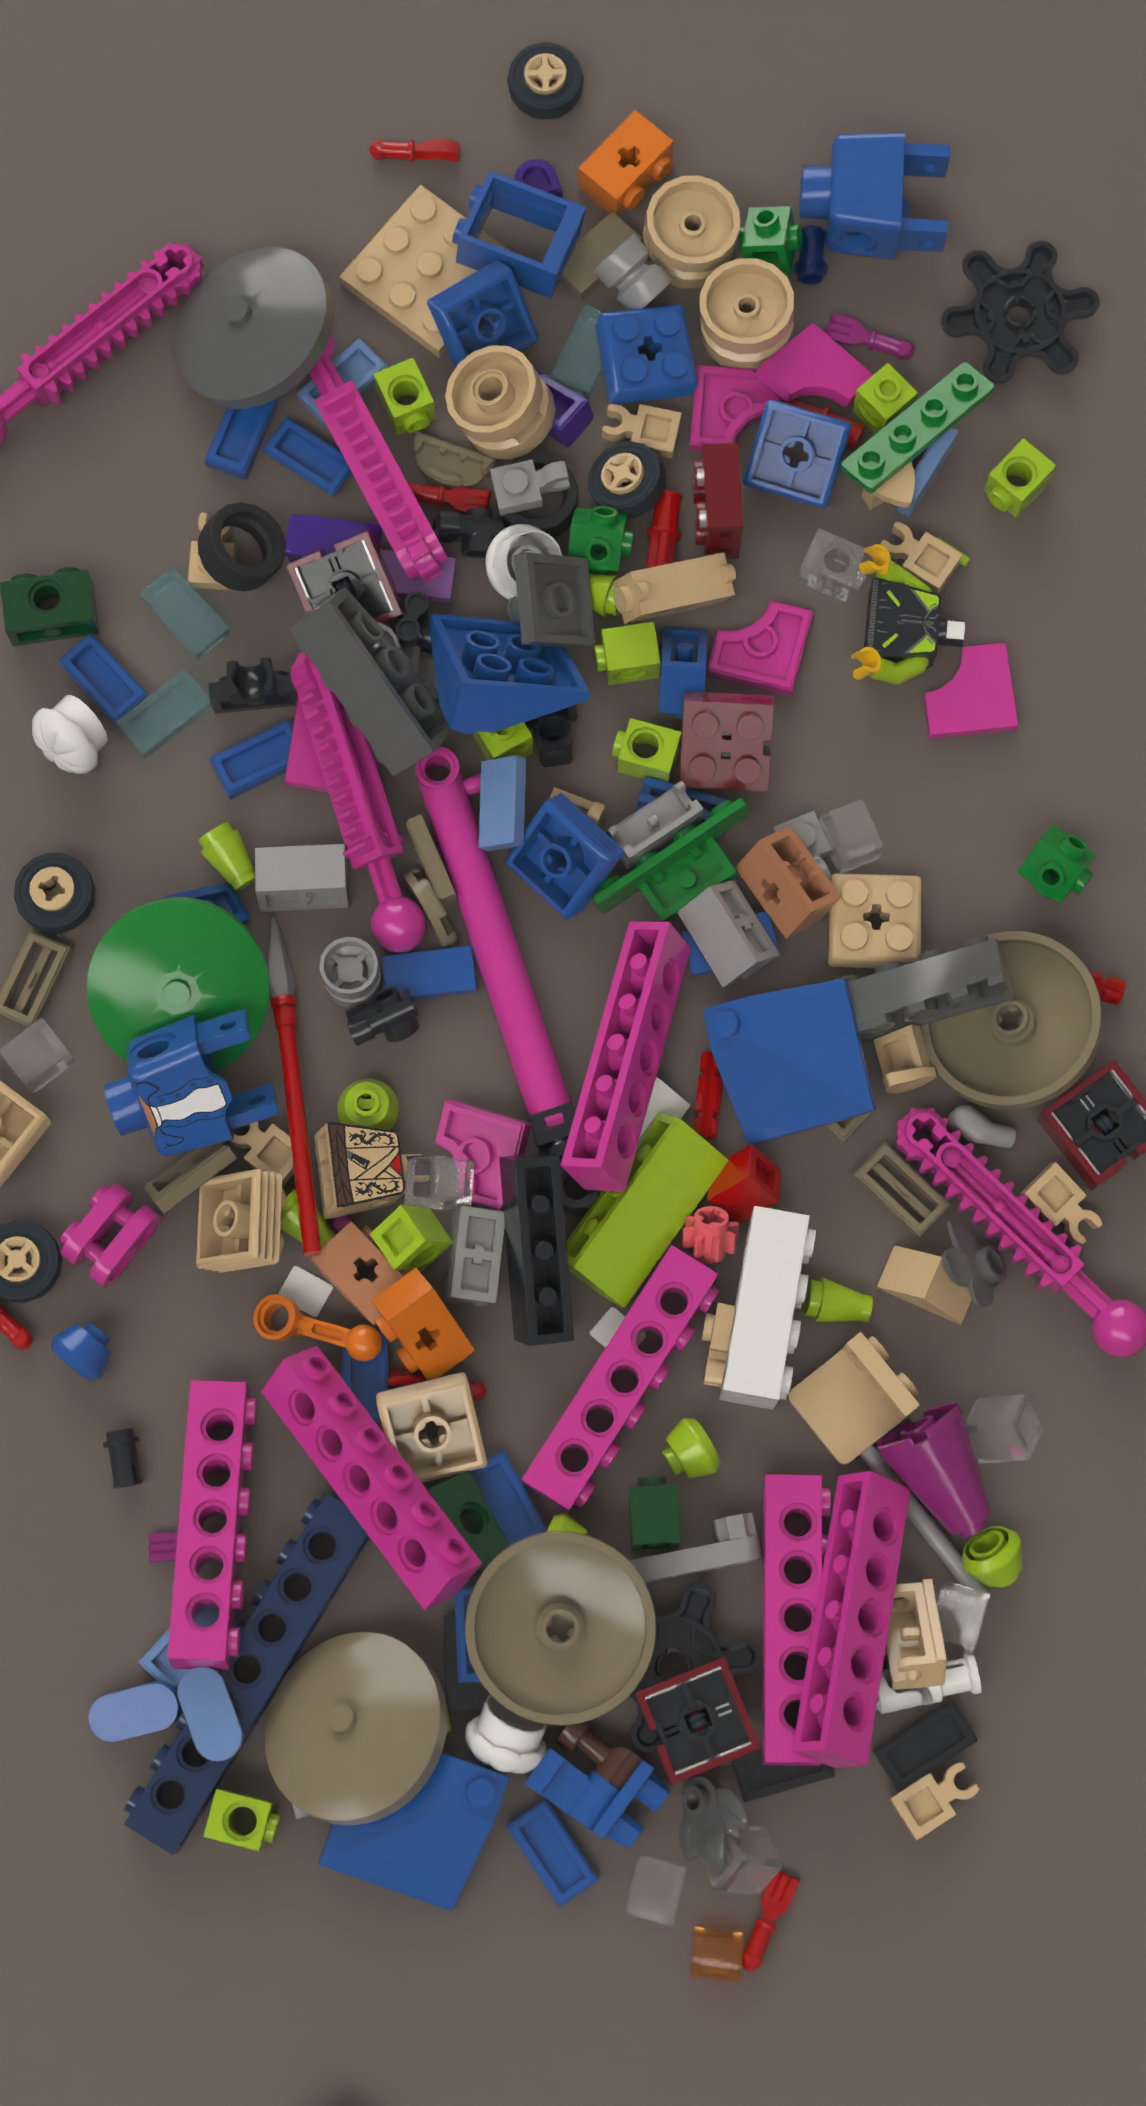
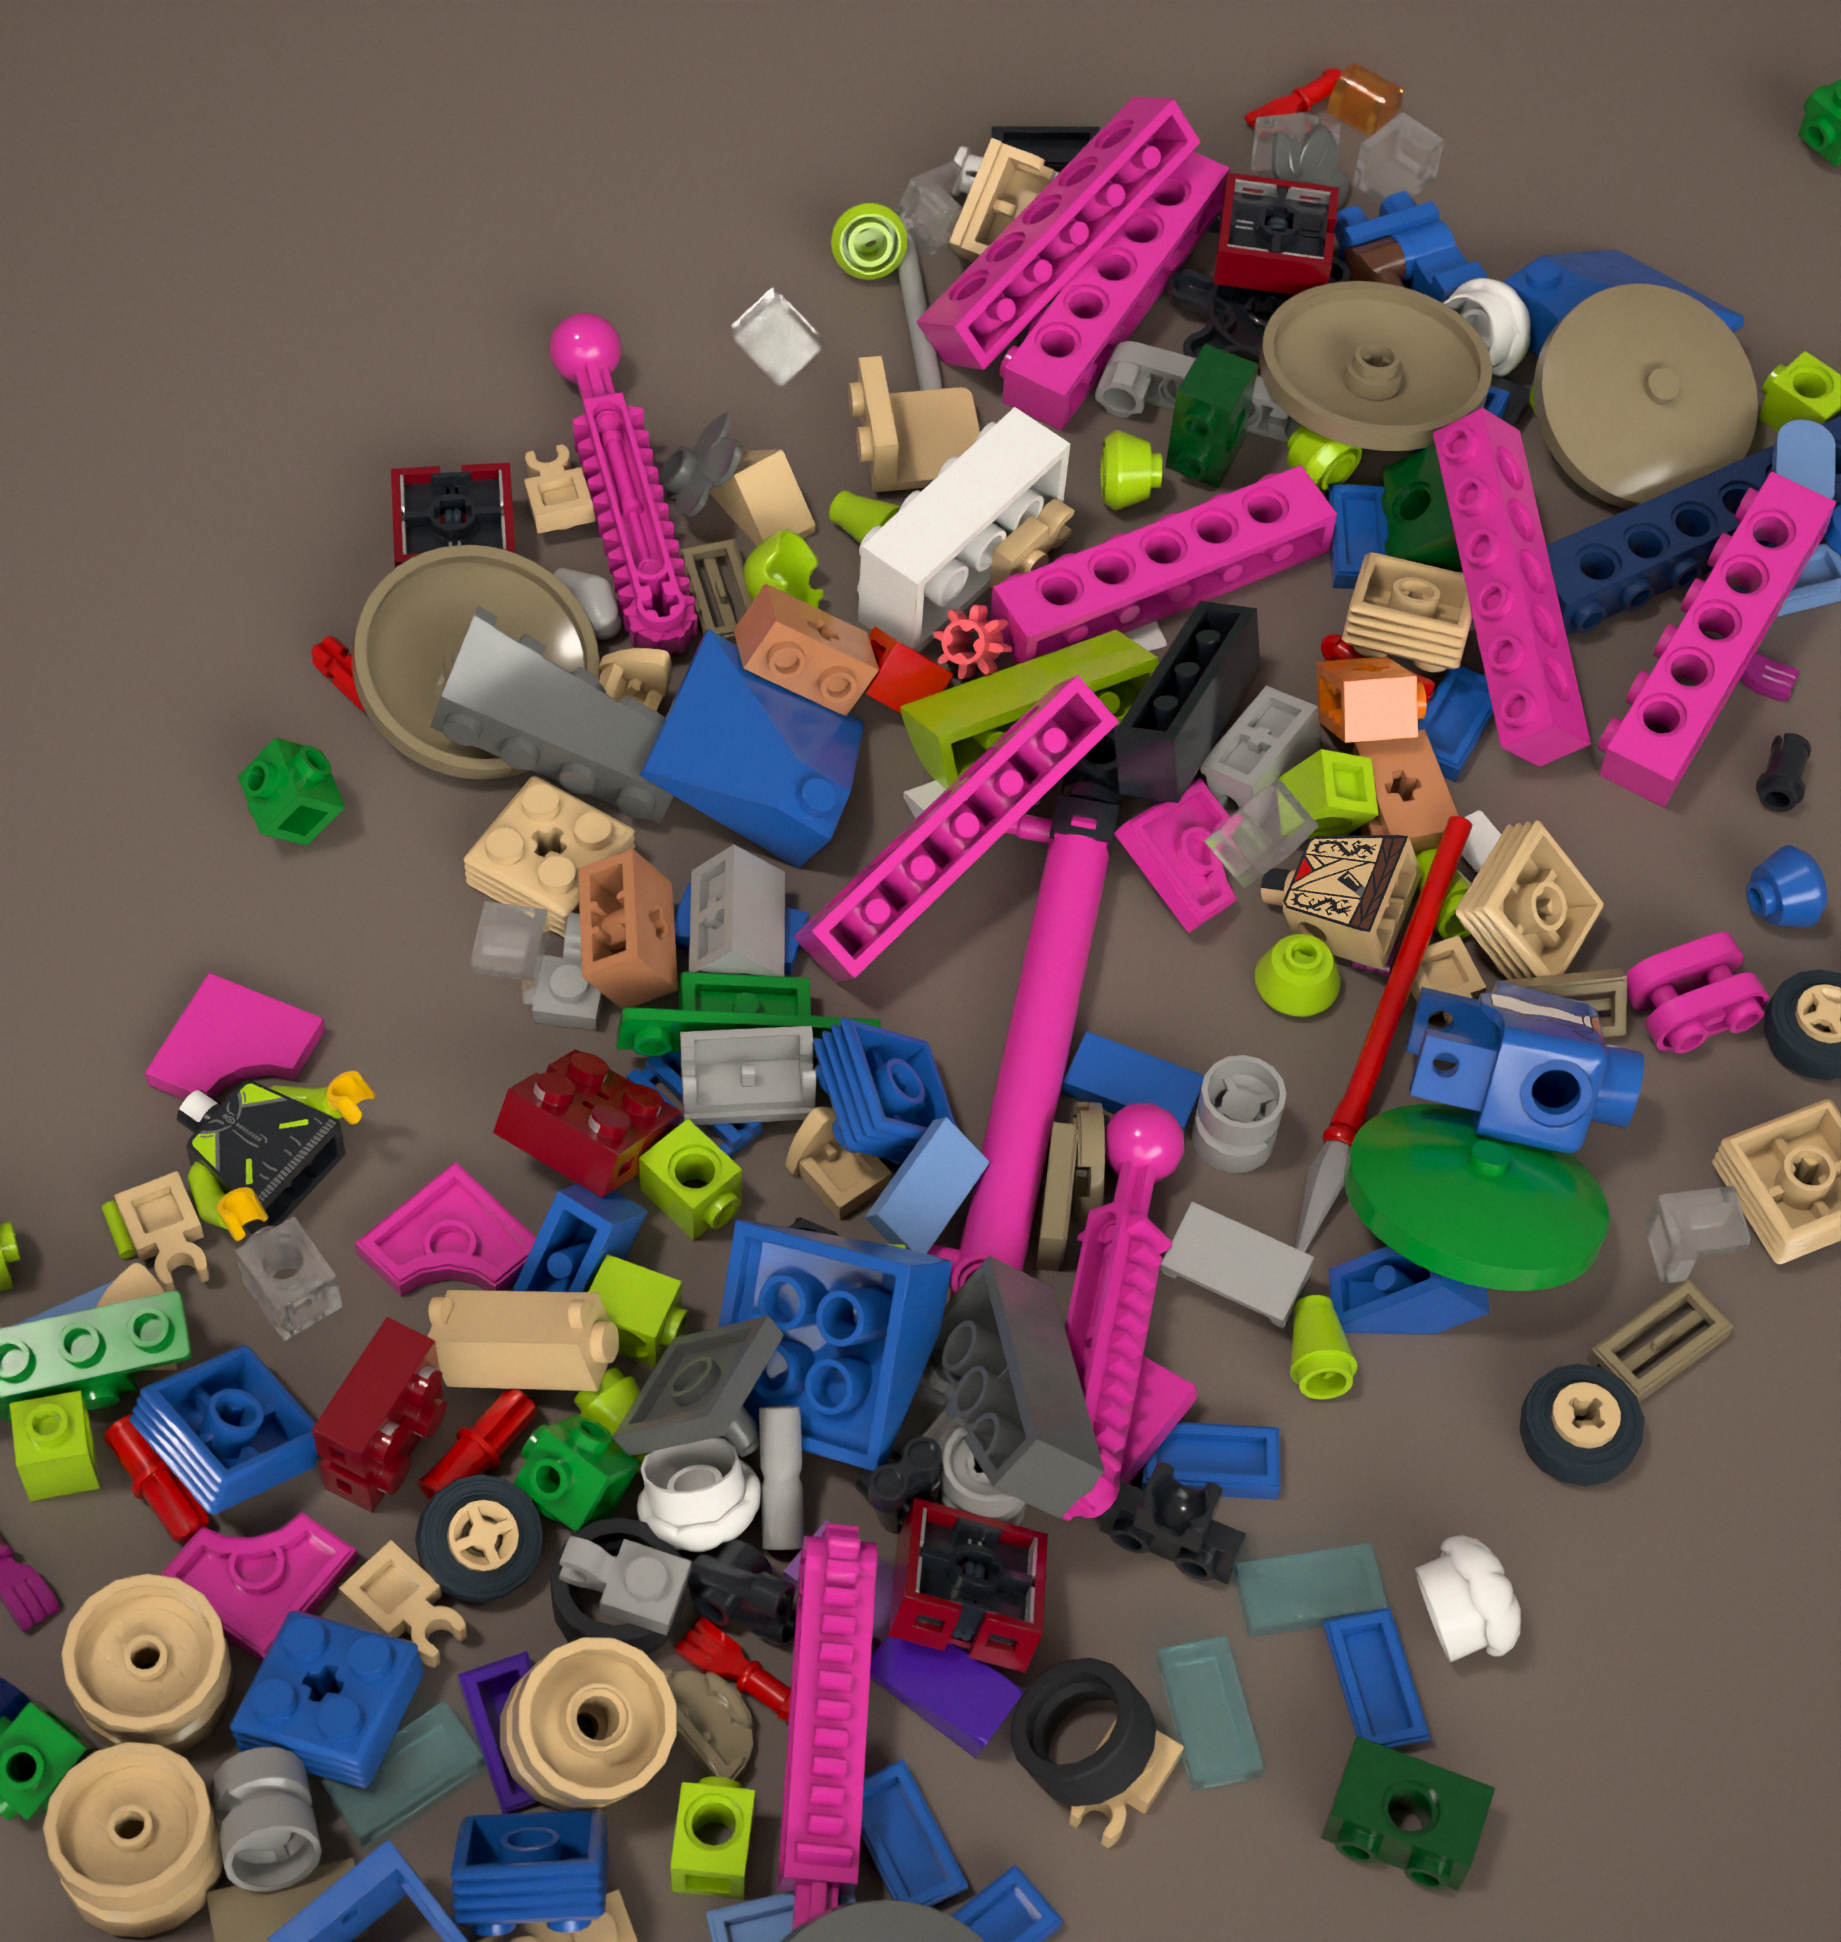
camera: 155 degrees left, 20 degrees down
(361, 1342) = (1448, 732): orange piece -> none
(389, 1013) = (1213, 1030): black plate -> none
(485, 598) = (781, 1470): none -> light grey piece
(552, 1852) = (1484, 235): blue tile -> none
(708, 1097) = (878, 786): red axle -> none
(805, 1142) = (805, 650): none -> nougat brick
(813, 366) = (99, 1540): dark pink tile -> none
(860, 1207) = (785, 564): none -> lime hair
(926, 1804) = (1072, 103): tan plate -> none
(940, 1467) = (868, 320): magenta cone -> none

